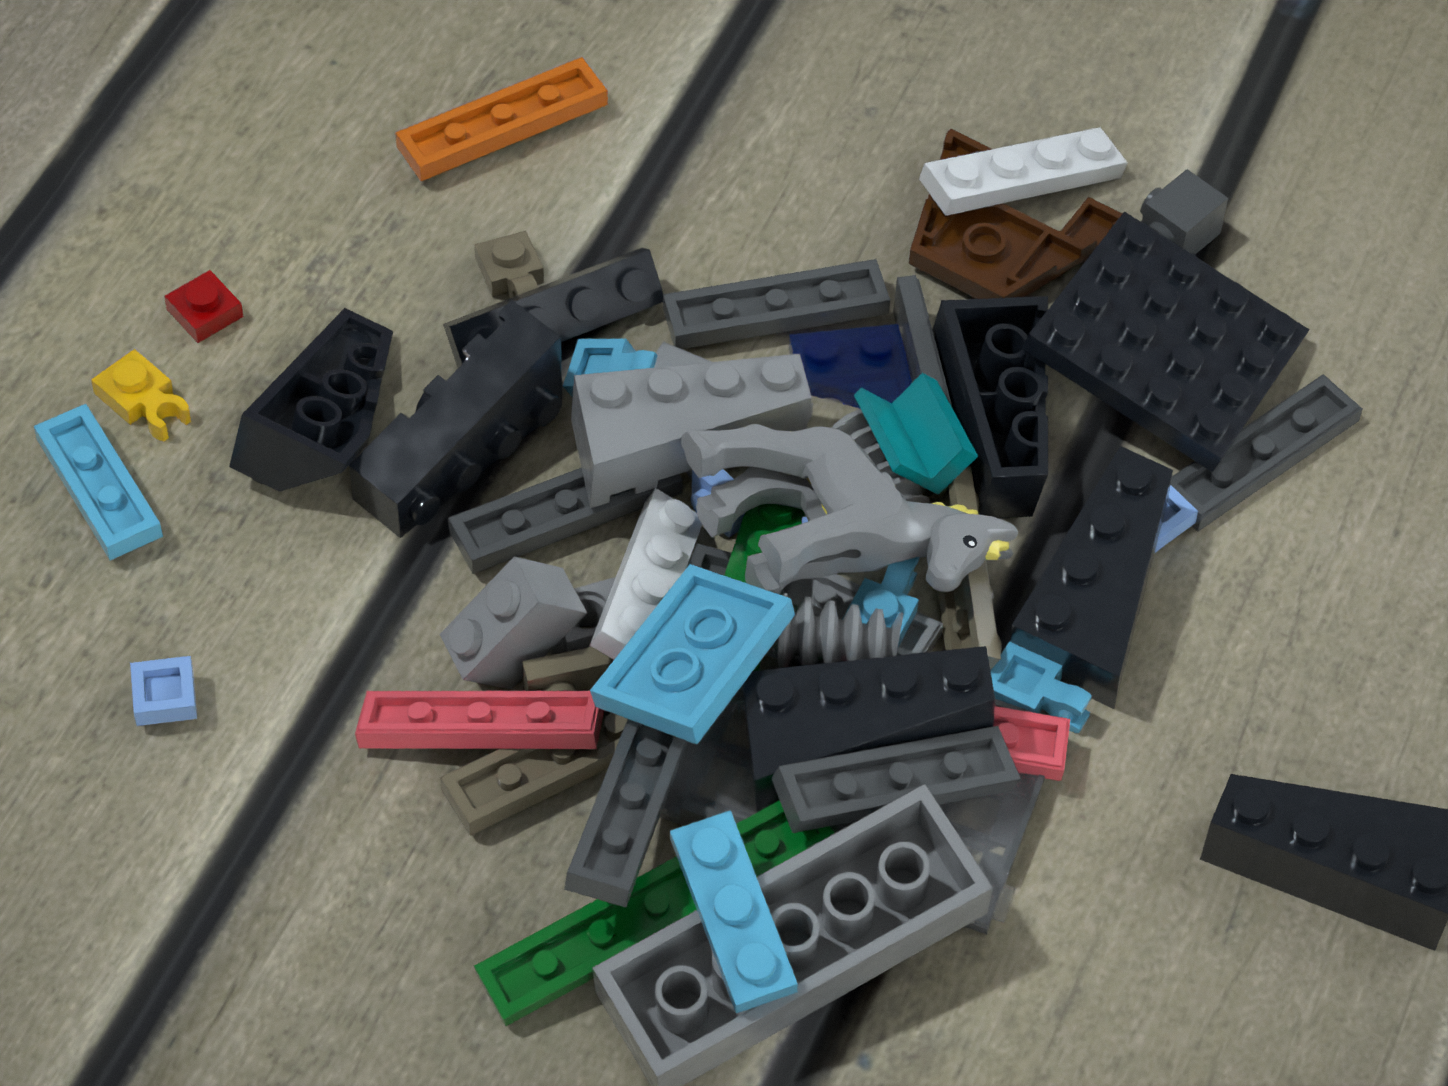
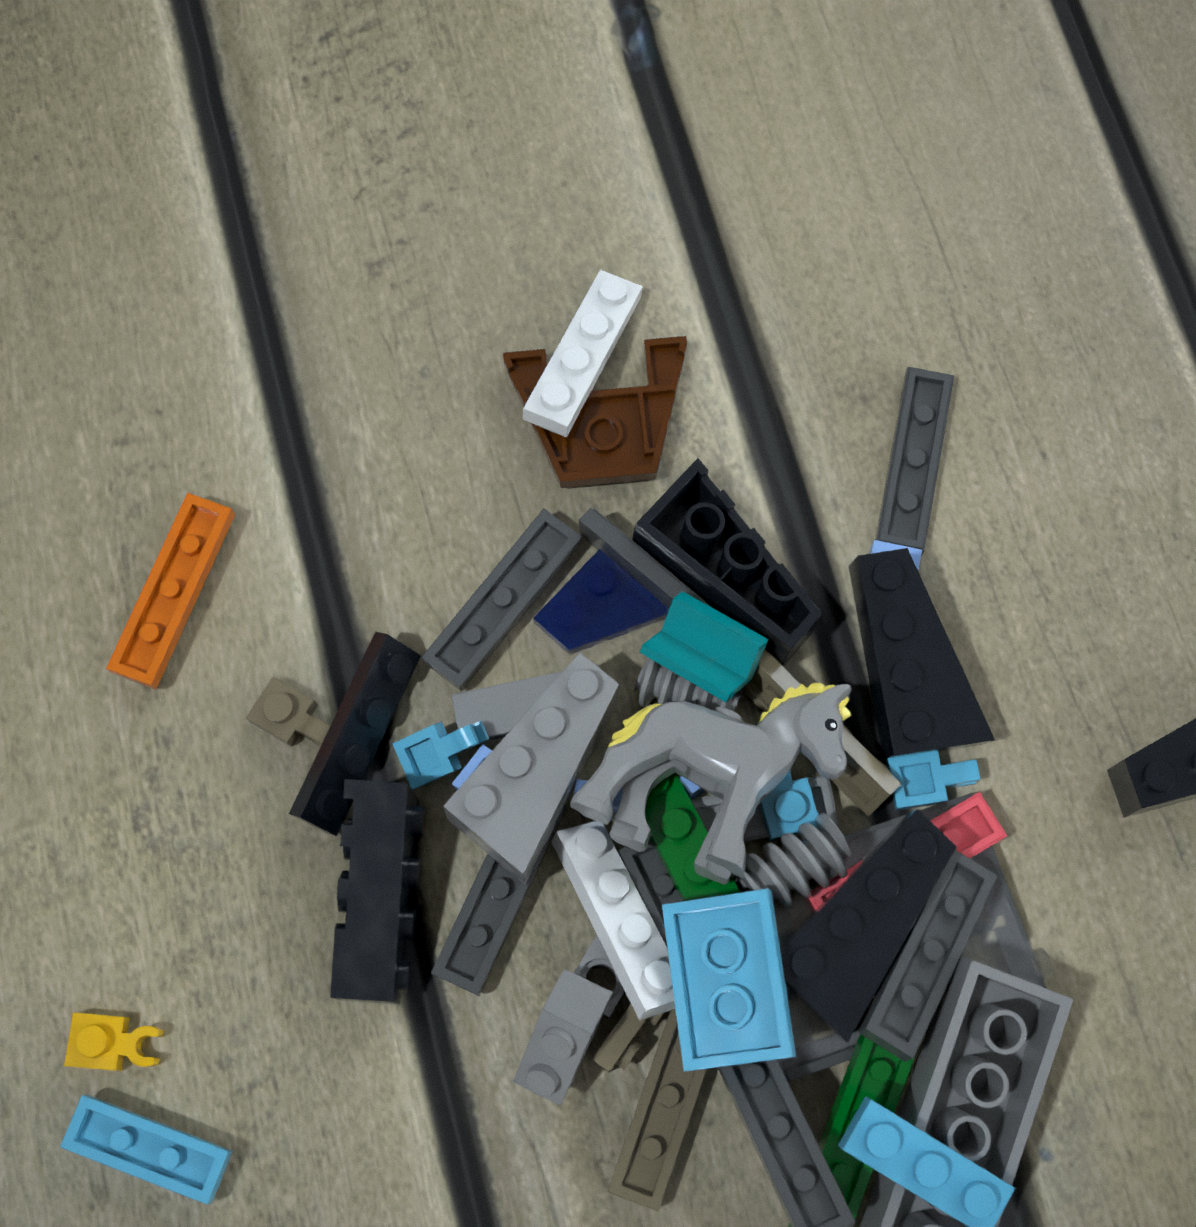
camera: 35 degrees left, 20 degrees up
(203, 306) = (89, 928): red plate -> none
(317, 409) = (265, 964): black wedge -> none
(479, 720) = (594, 1122): coral tile -> none
(1166, 340) = (797, 427): black plate -> none
(1186, 211) = (717, 308): dark grey brick -> none

